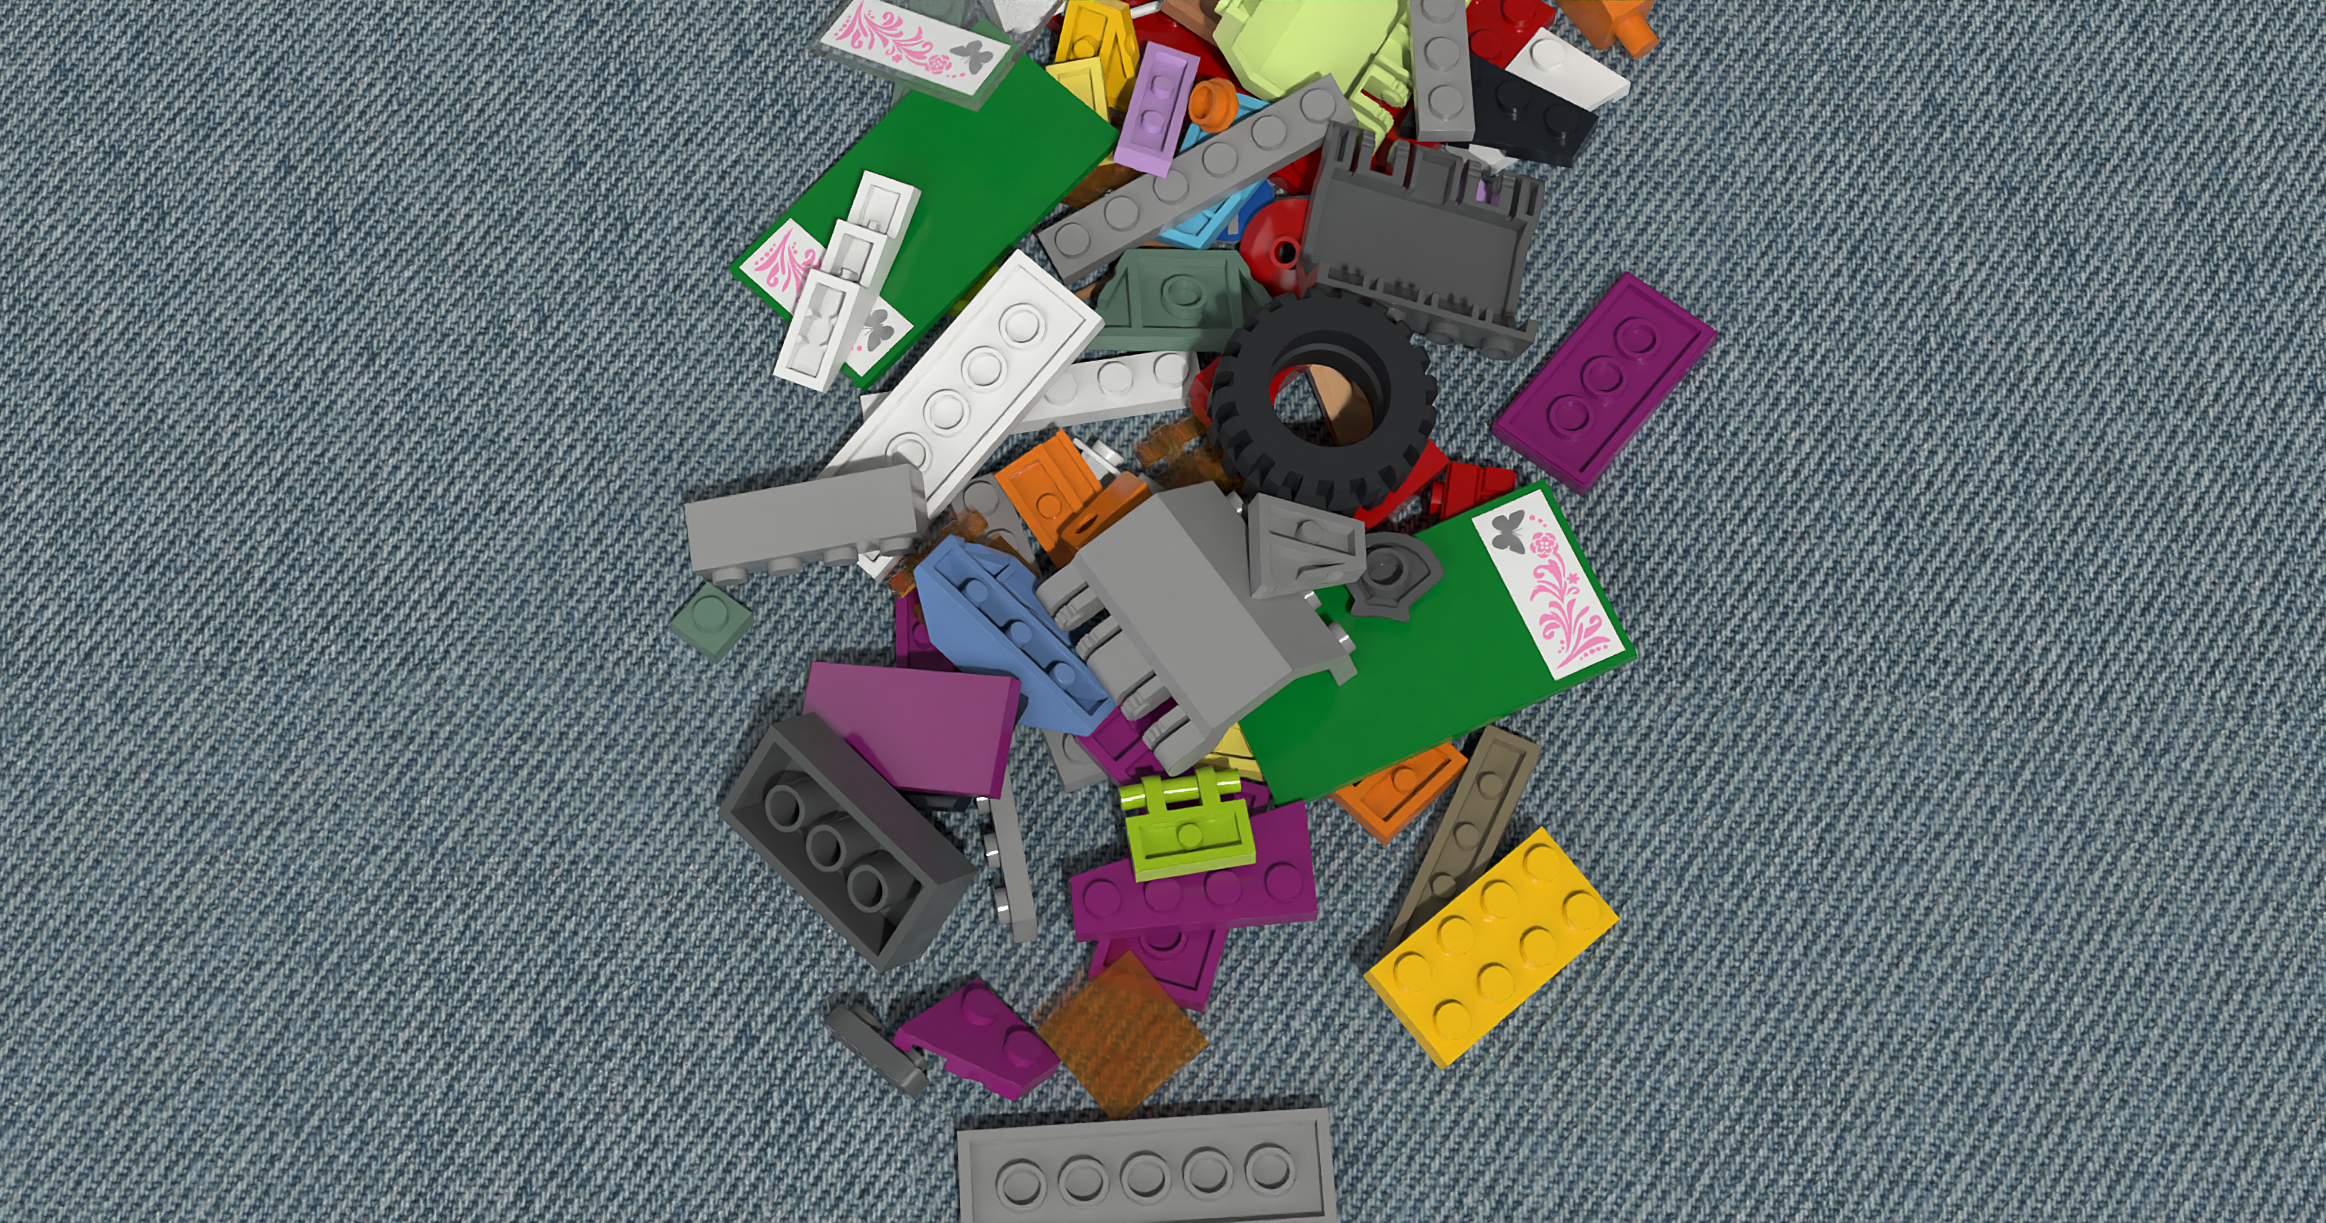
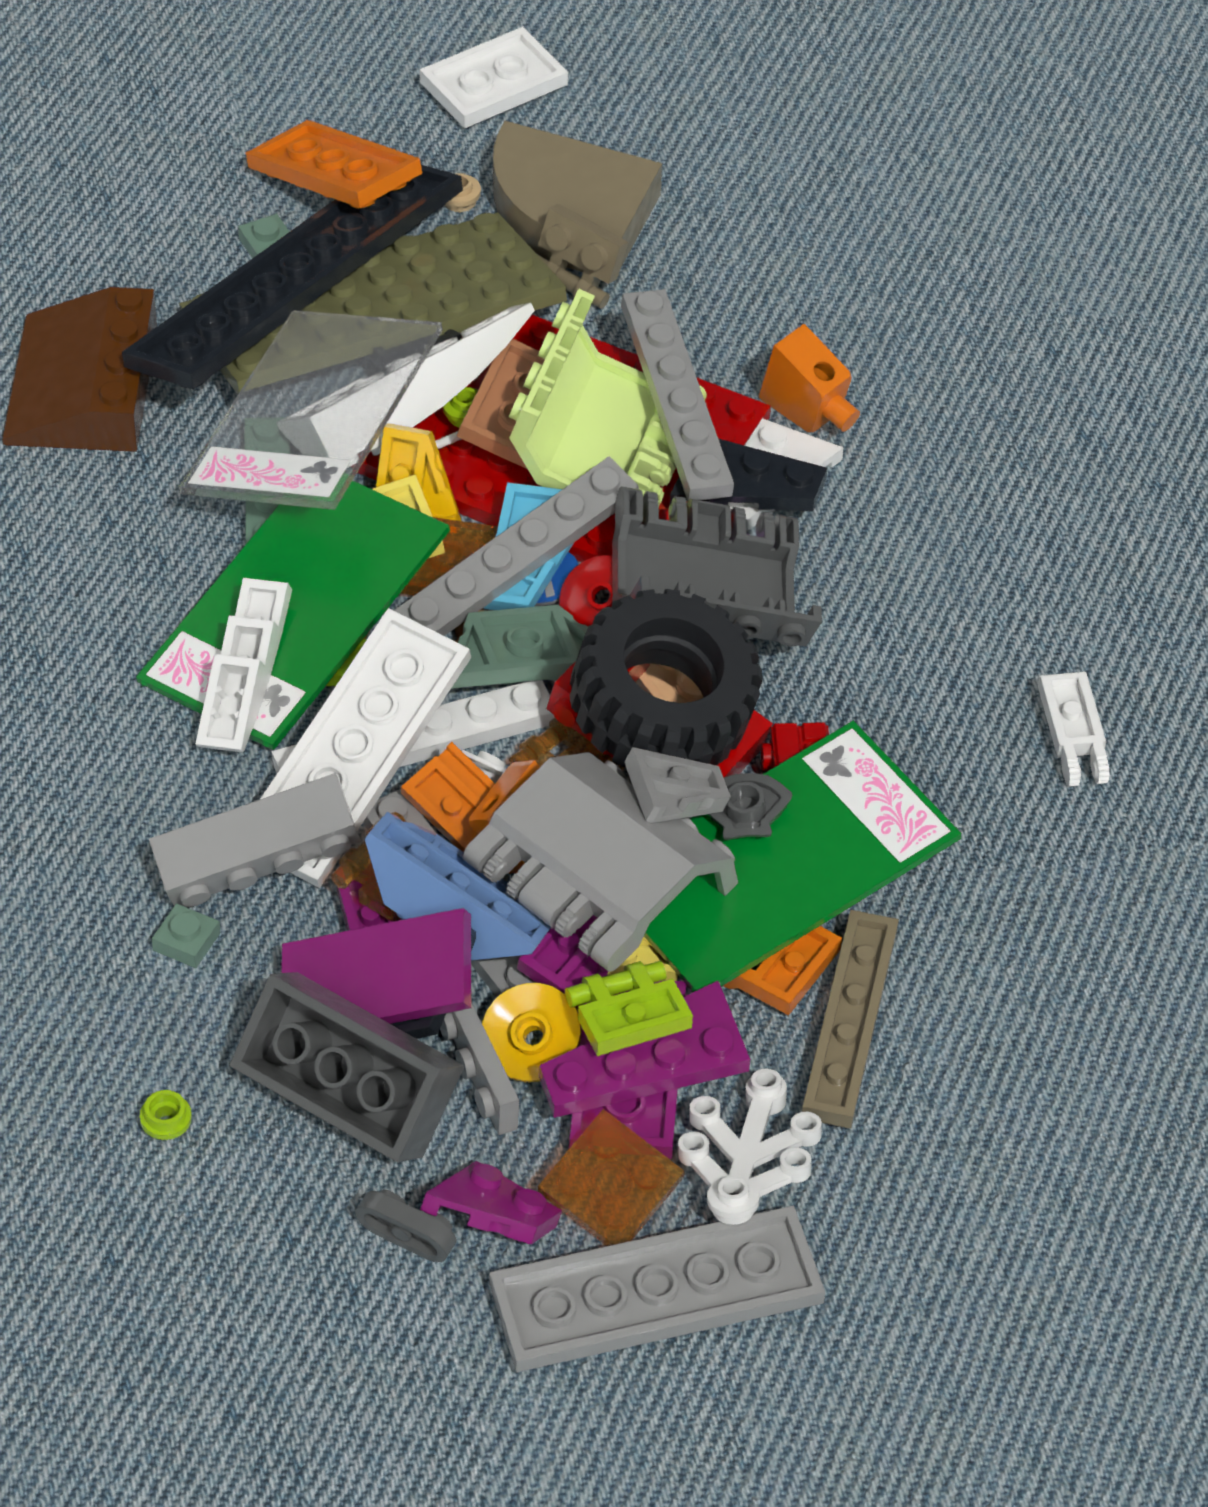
camera: 15 degrees left, 15 degrees down
(635, 841) = (165, 1104): none -> lime plate
(1049, 815) = (523, 1011): none -> yellow dish
(1156, 110) = (472, 506): lavender plate -> none
(1213, 105) = (519, 493): orange plate -> none
(1291, 1027) = (736, 1195): none -> white plant
(1491, 948) = (896, 1069): yellow plate -> none
(1604, 383) = (877, 660): magenta tile -> none
(1820, 510) = (1074, 724): none -> white hinge

